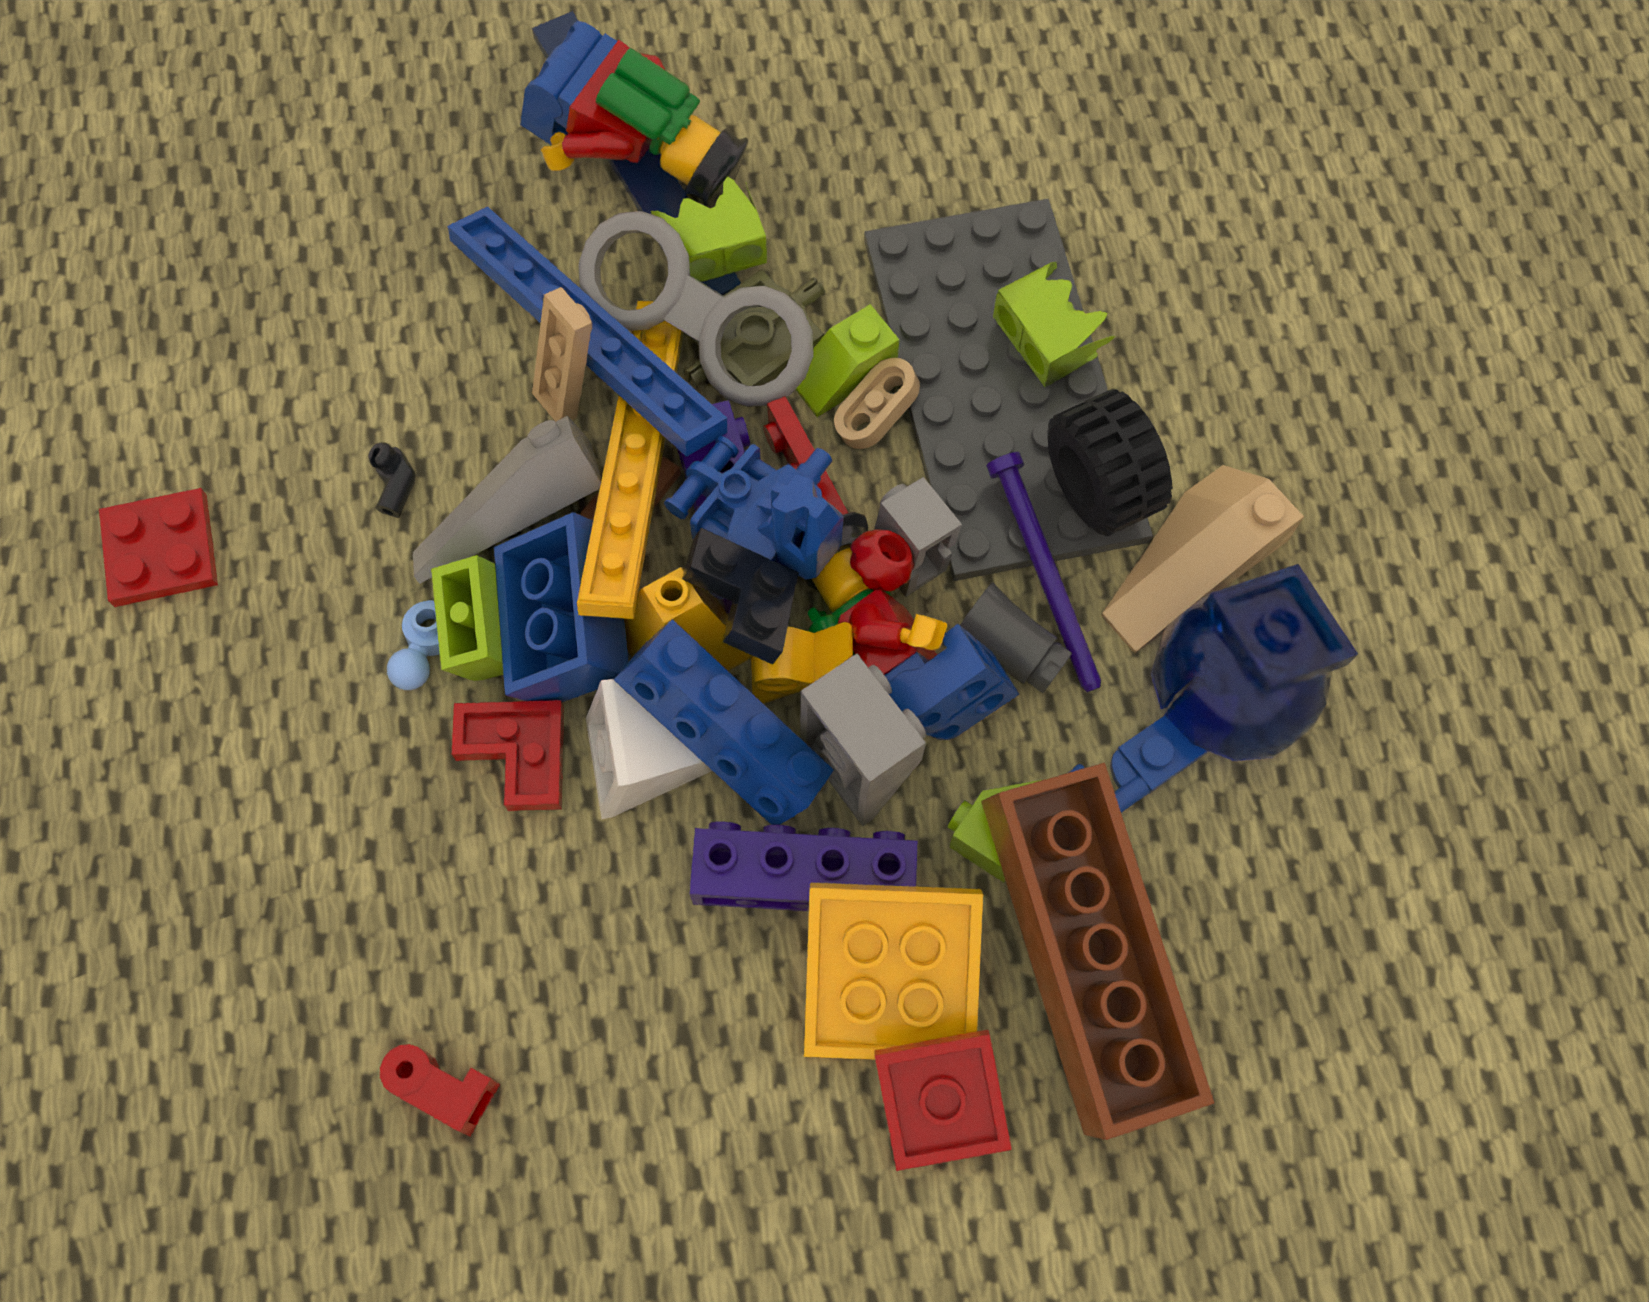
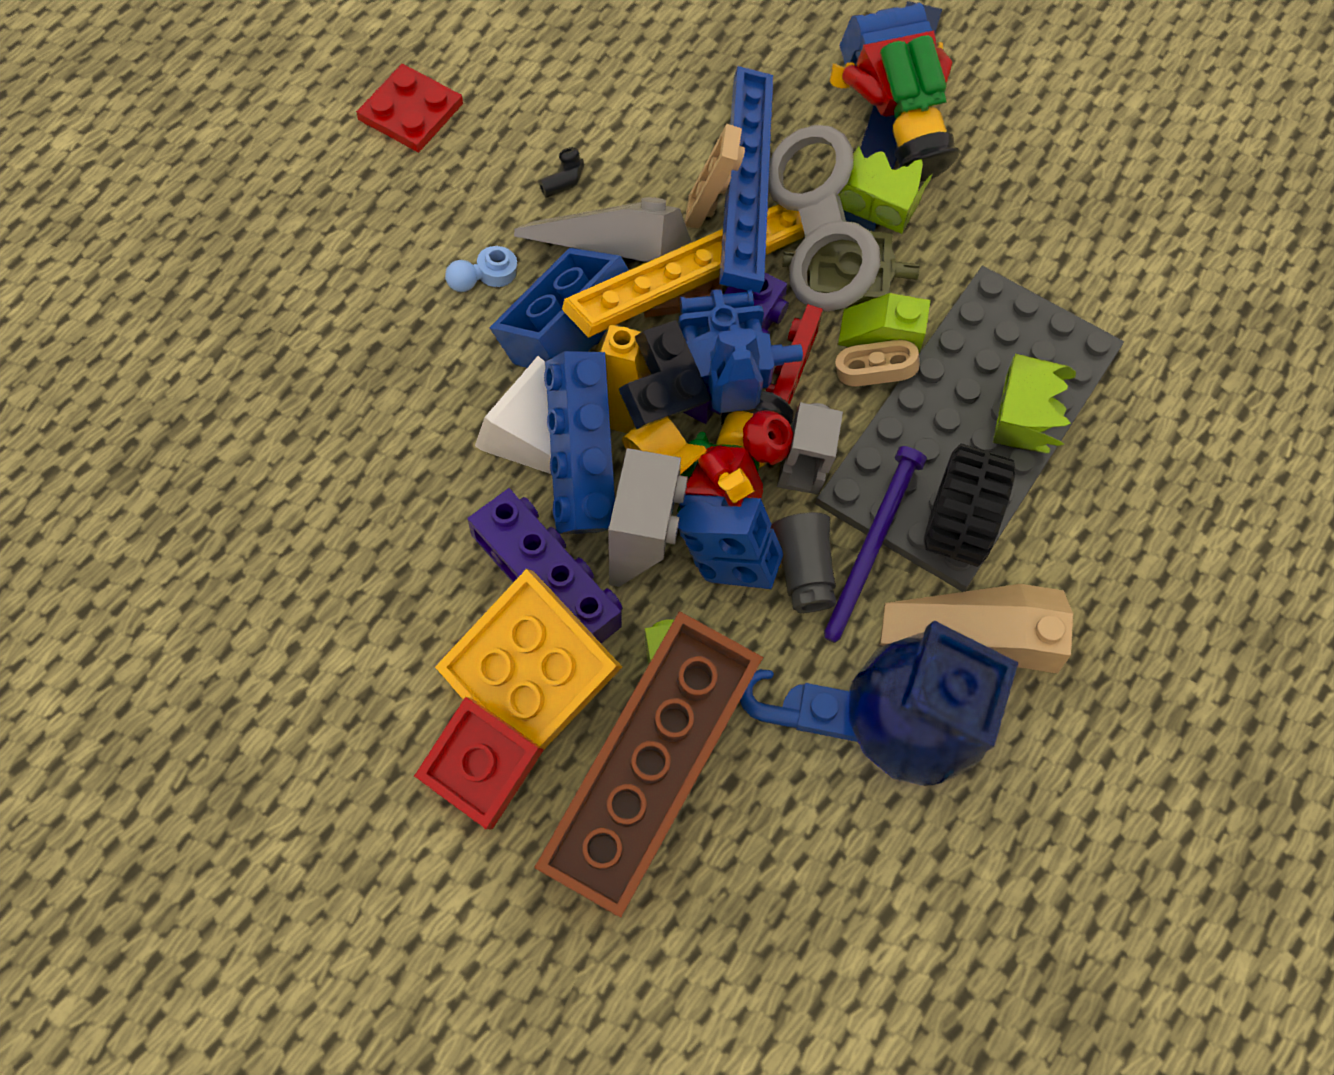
camera: 45 degrees right, 5 degrees down
(418, 1080) = (235, 494): red leg -> none
(468, 618) = (514, 271): lime brick -> none
(523, 734) = (479, 367): red plate -> none

